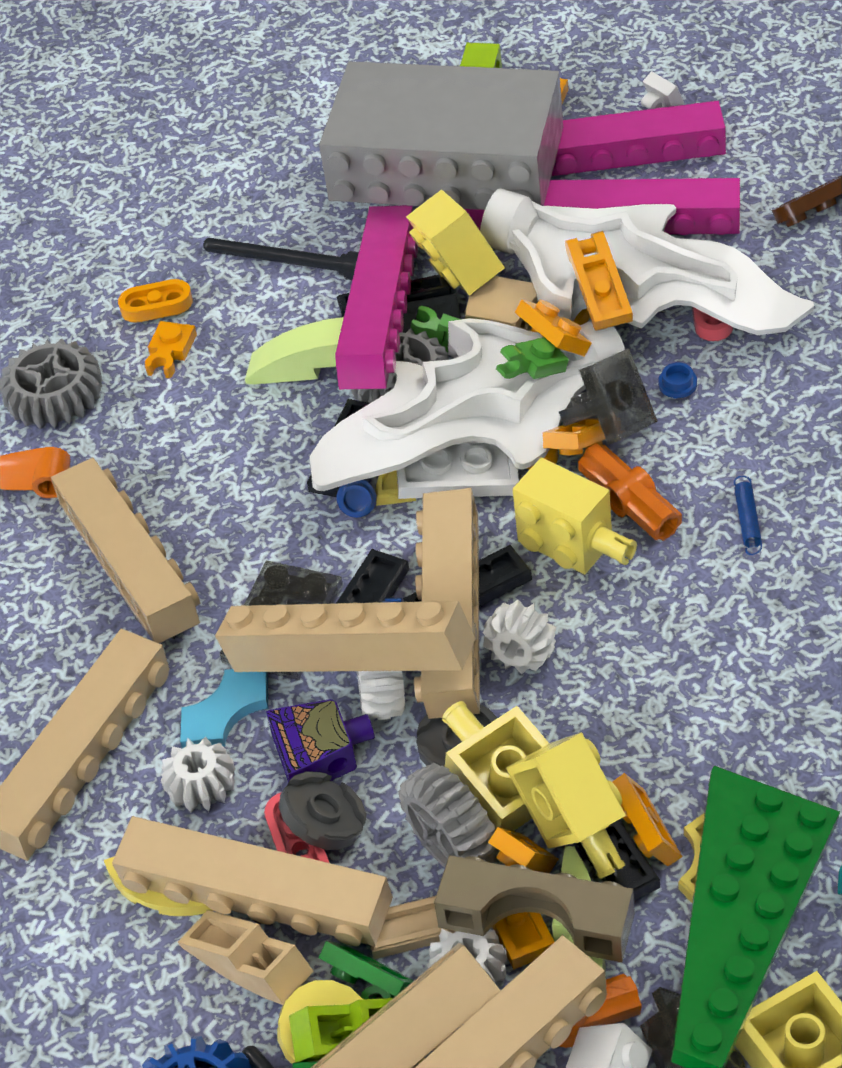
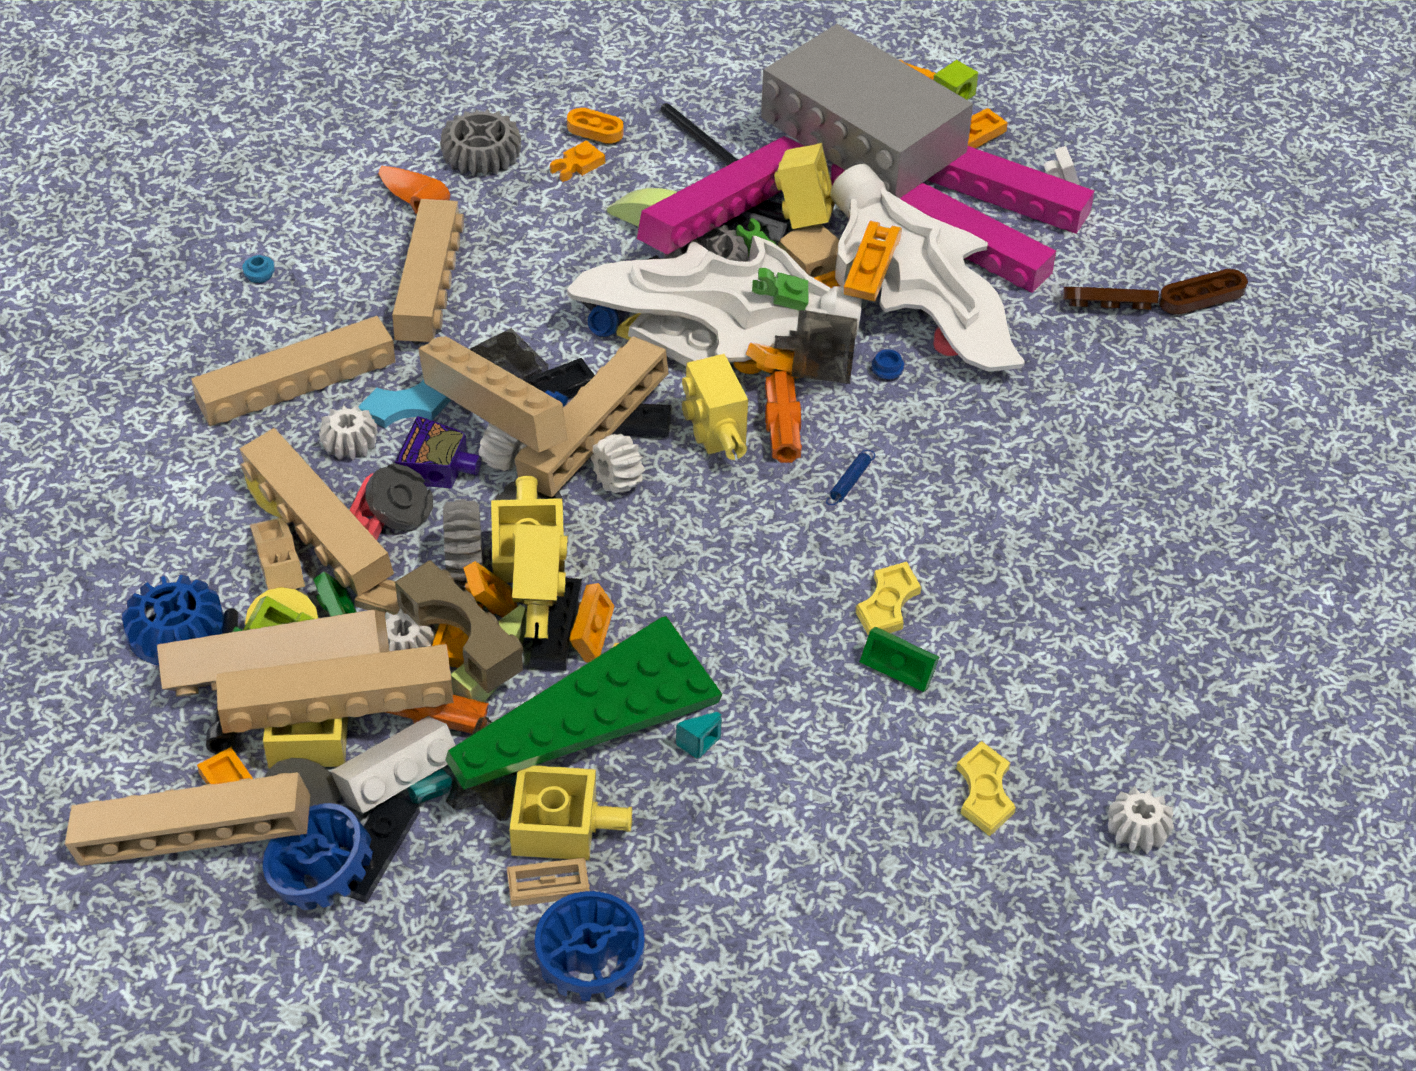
camera: 25 degrees right, 0 degrees up
(557, 330) = (817, 276): light orange plate -> none

